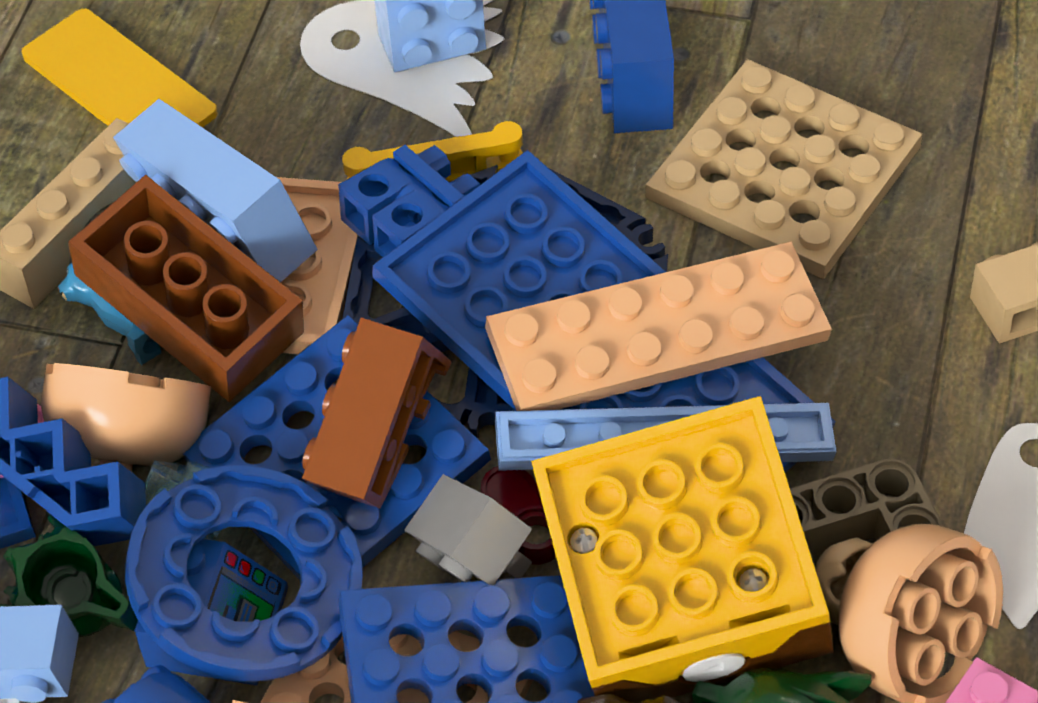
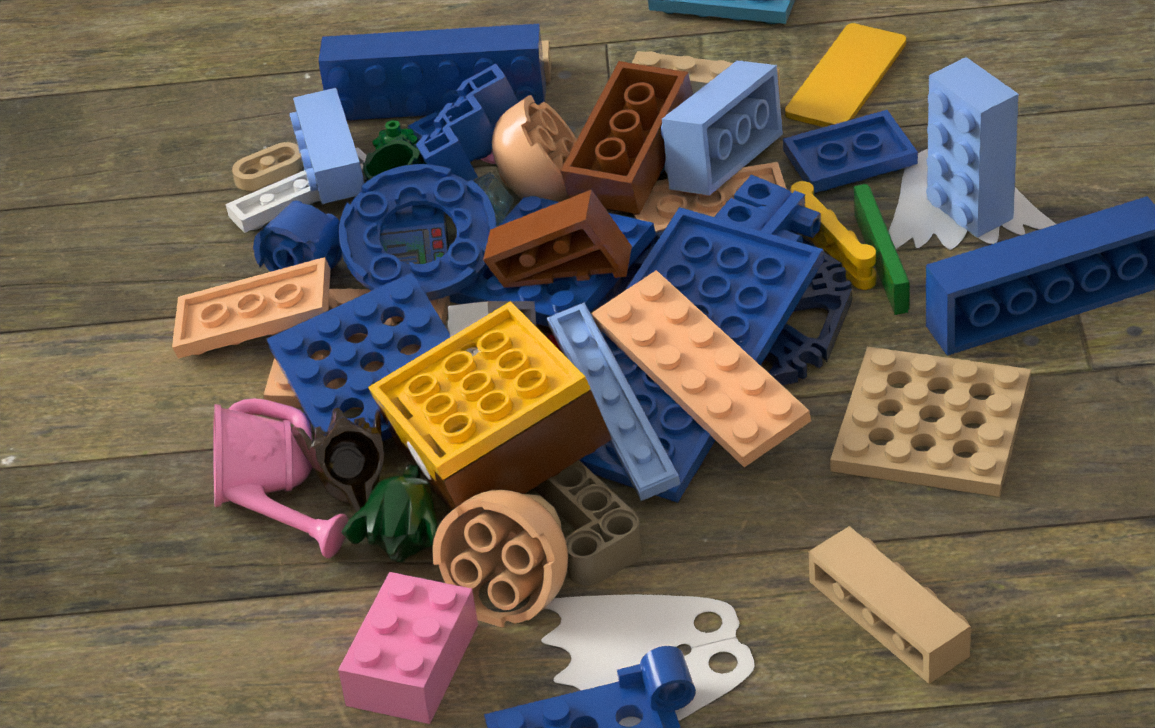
camera: 75 degrees right, 10 degrees down
(282, 108) = (850, 151): none -> blue plate
(421, 121) = (887, 260): none -> green tile

